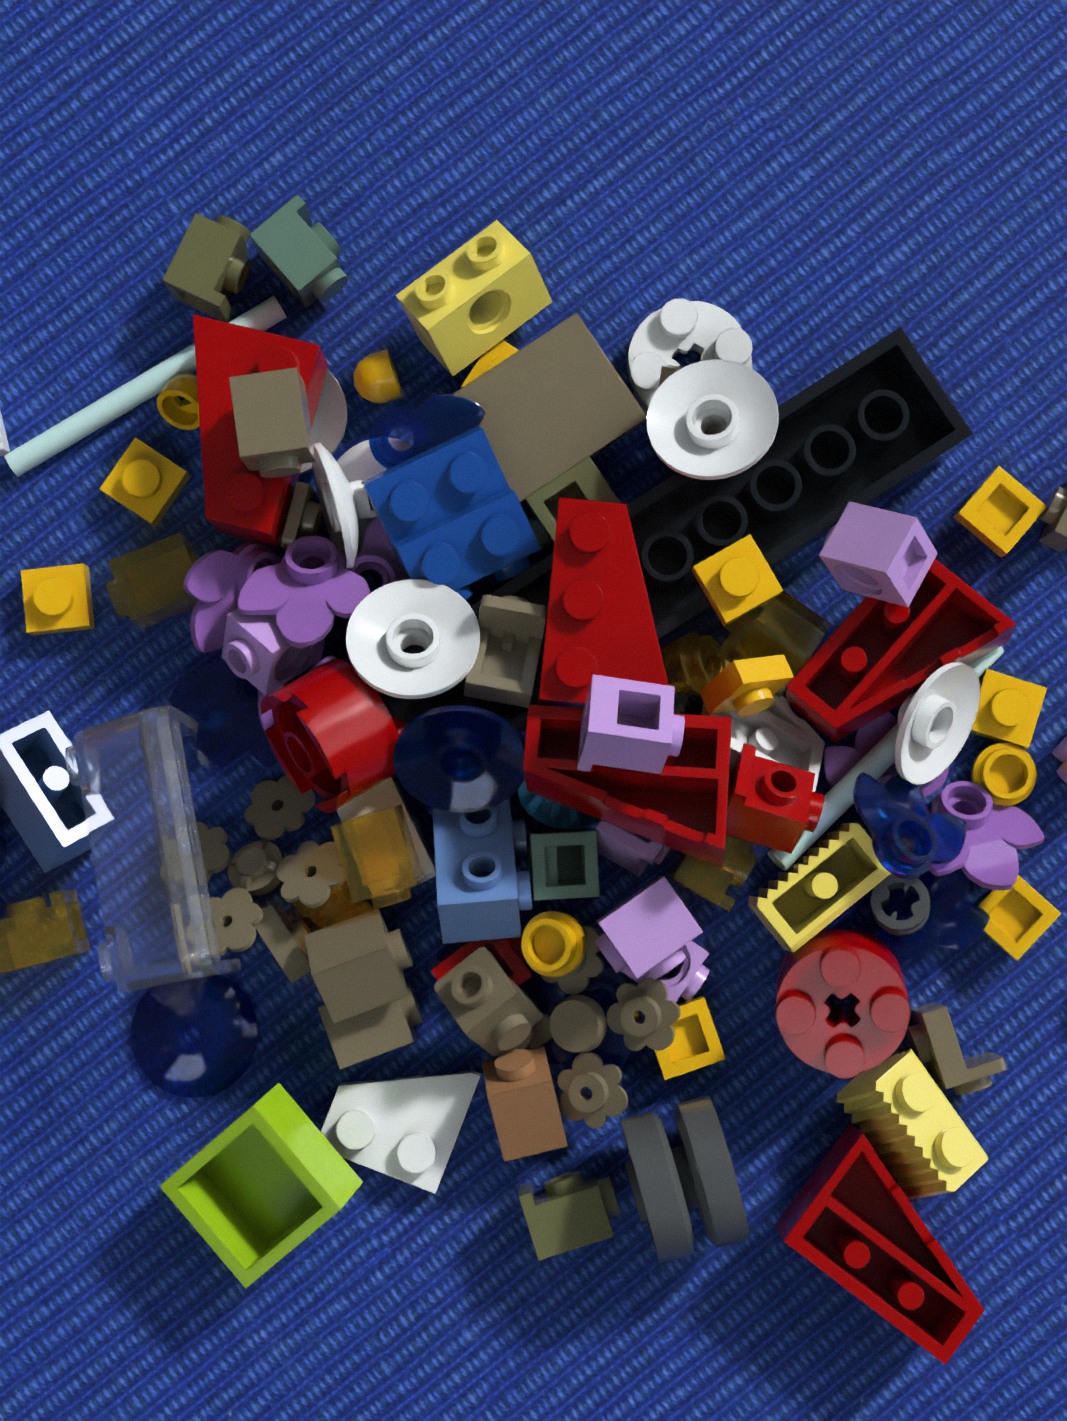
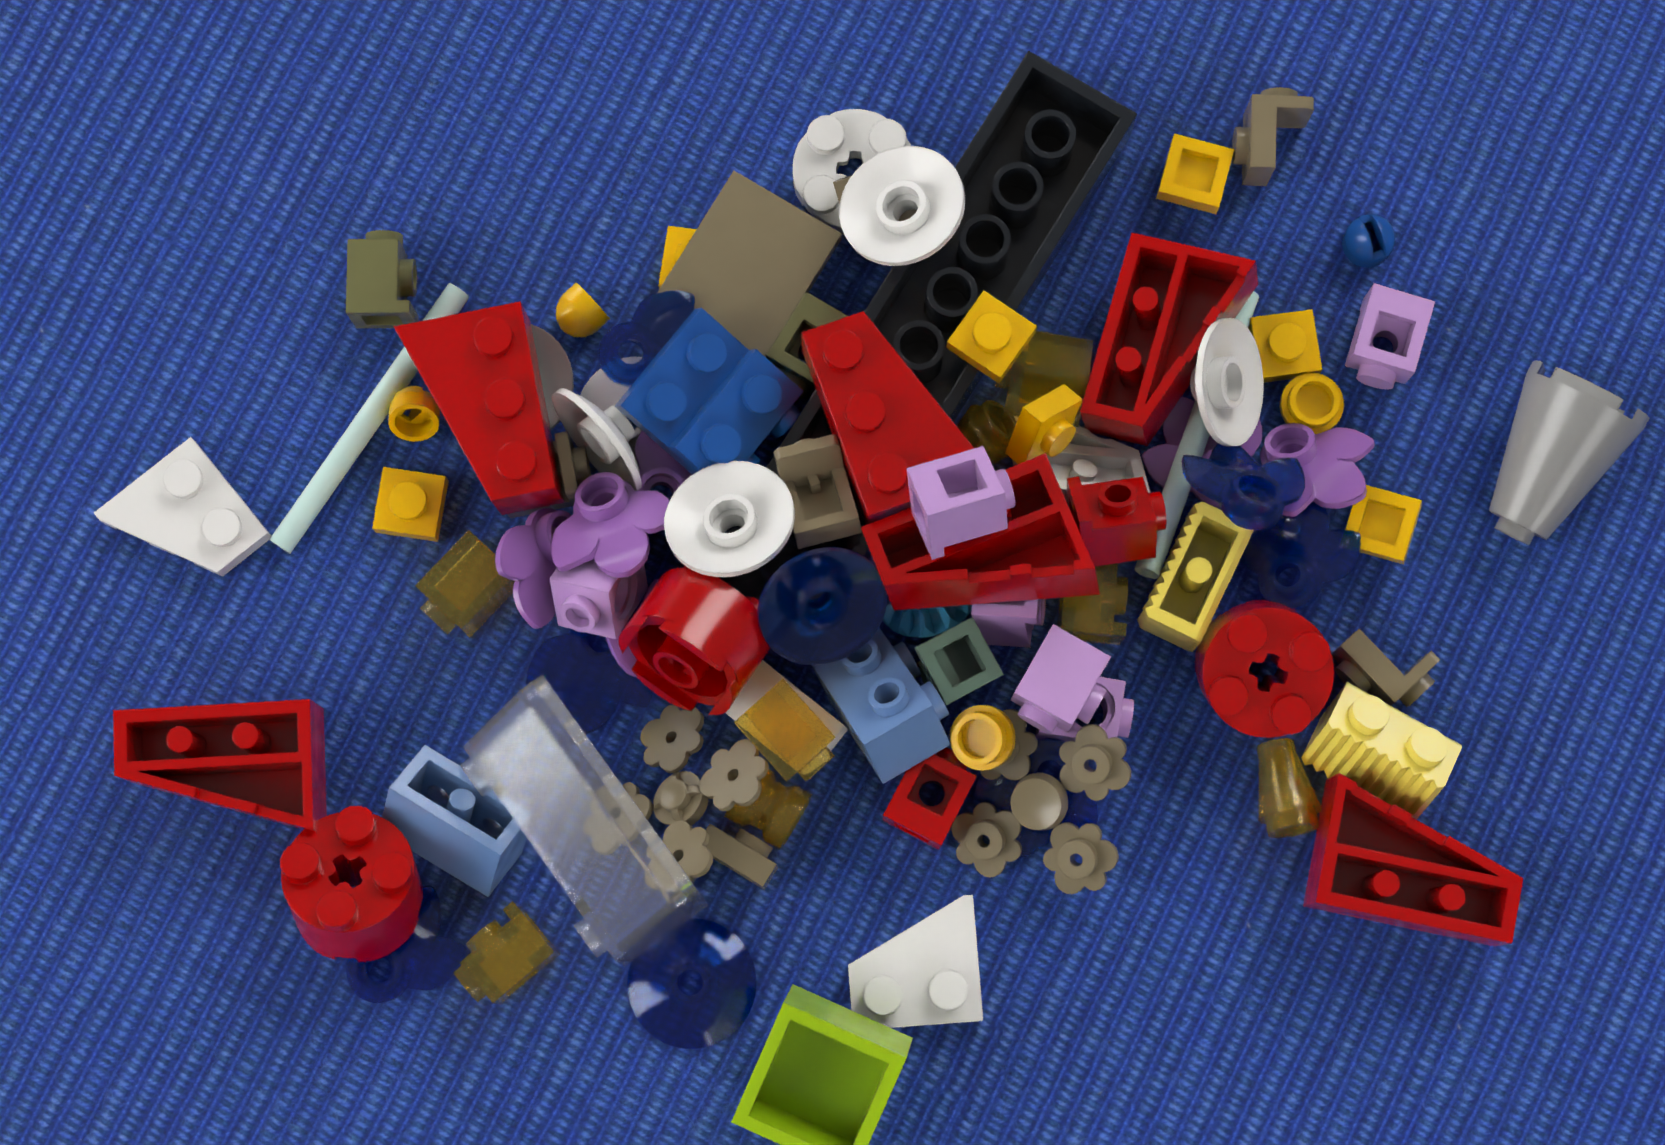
camera: 20 degrees left, 5 degrees down
(57, 599) = (379, 647): yellow plate -> none
(272, 422) = (516, 384): dark tan brick -> none
(300, 254) = (457, 234): sand green brick -> none
(358, 964) = (816, 837): dark tan brick -> none
(373, 1031) = (850, 890): dark tan brick -> none
(475, 297) = (635, 200): light yellow brick -> none
(488, 1003) = (949, 817): dark tan bracket -> none
(523, 1103) = (1024, 896): medium nougat brick -> none
(568, 1213) = (1112, 978): olive brick -> none
(684, 1179) = (1201, 892): dark grey wheel -> none
(694, 1041) = (1151, 773): yellow plate -> none
(807, 1117) = (1284, 791): none -> clear yellow cone
(878, 553) = (1104, 255): lavender brick -> none
(920, 909) = (1294, 553): dark grey bush -> none

